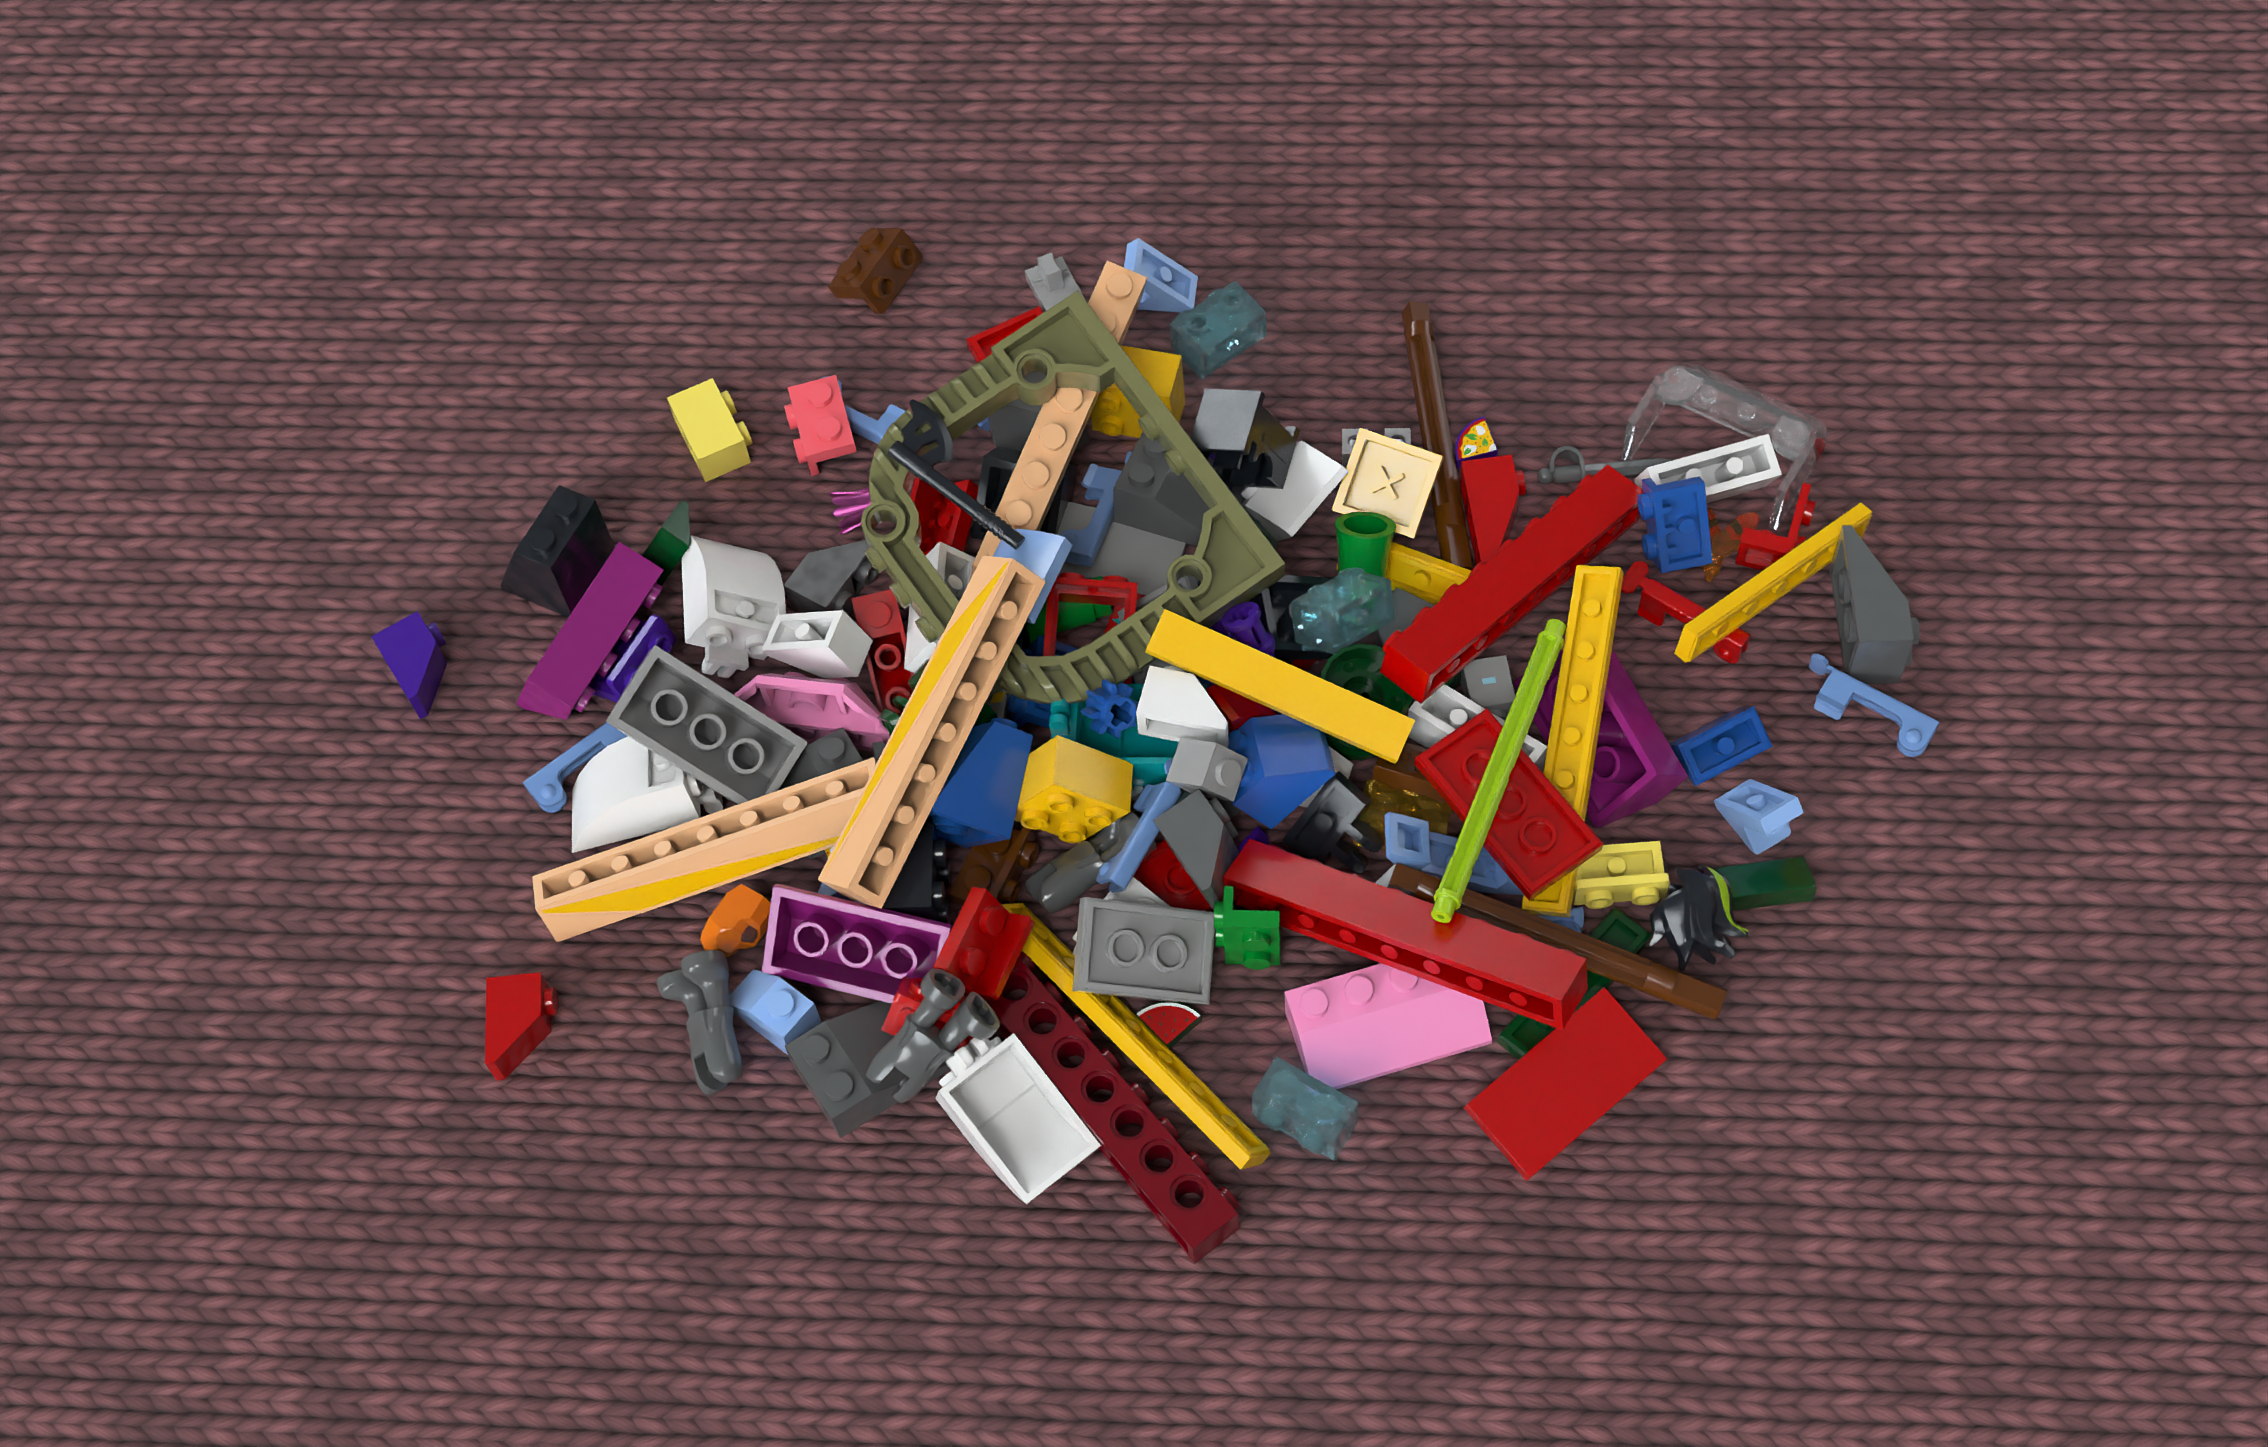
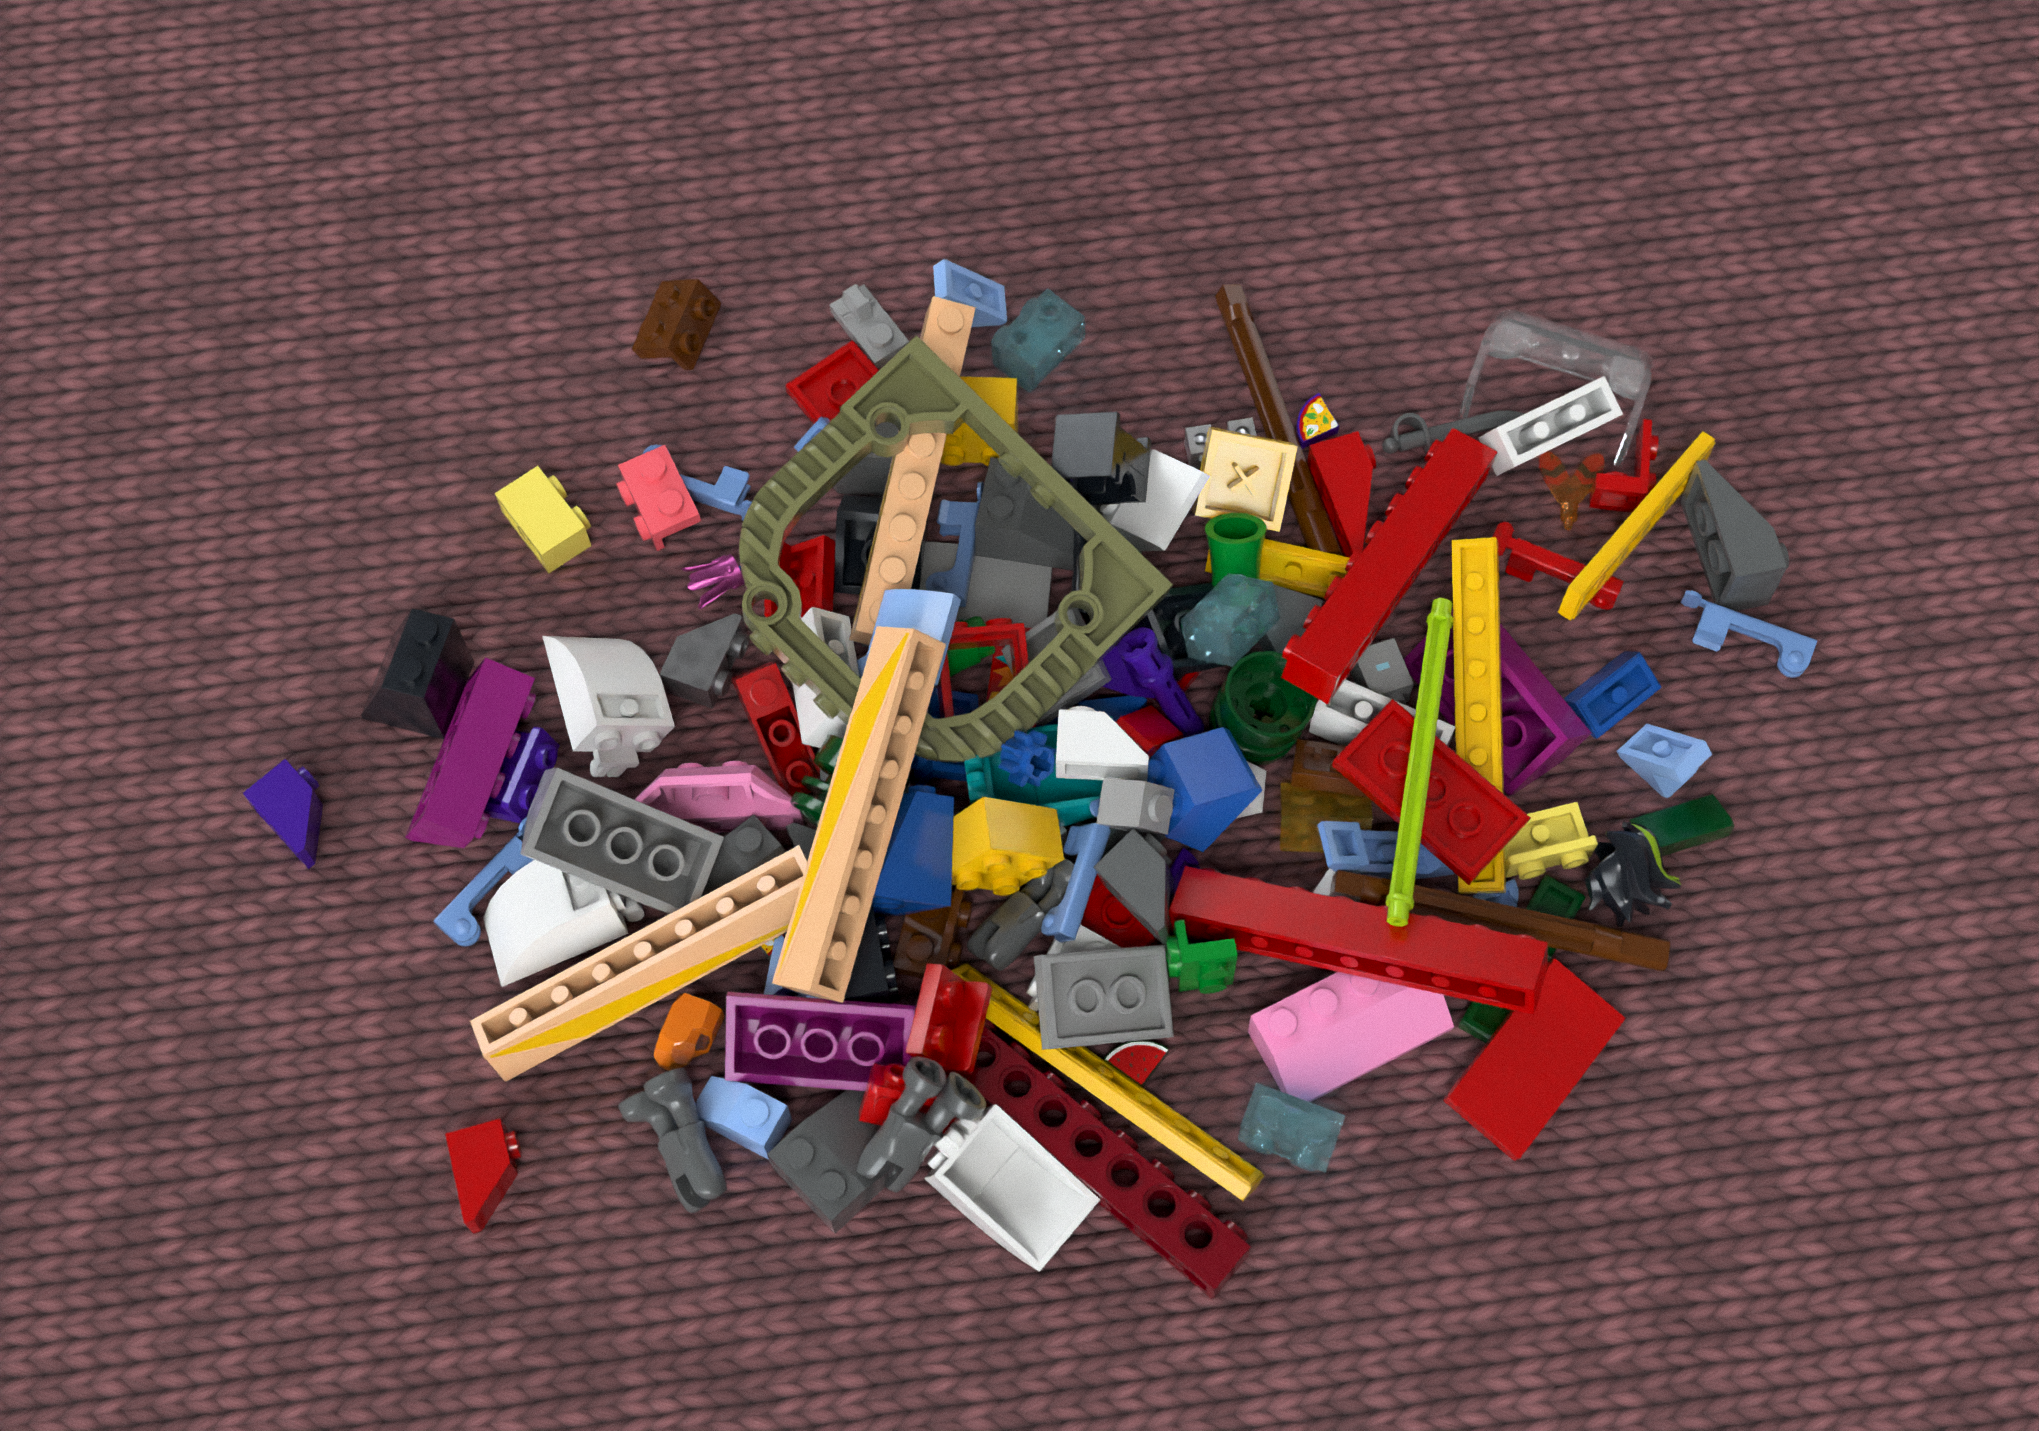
camera: 15 degrees left, 5 degrees up
(670, 541) = (533, 644): dark green slope -> none
(819, 643) = (711, 731): white slope -> none
(922, 467) = (796, 543): black piece -> none
(1280, 686) = (1189, 709): yellow tile -> none
(1329, 820) = (1255, 834): black hinge -> none
(1675, 524) = (1531, 480): blue bracket -> none

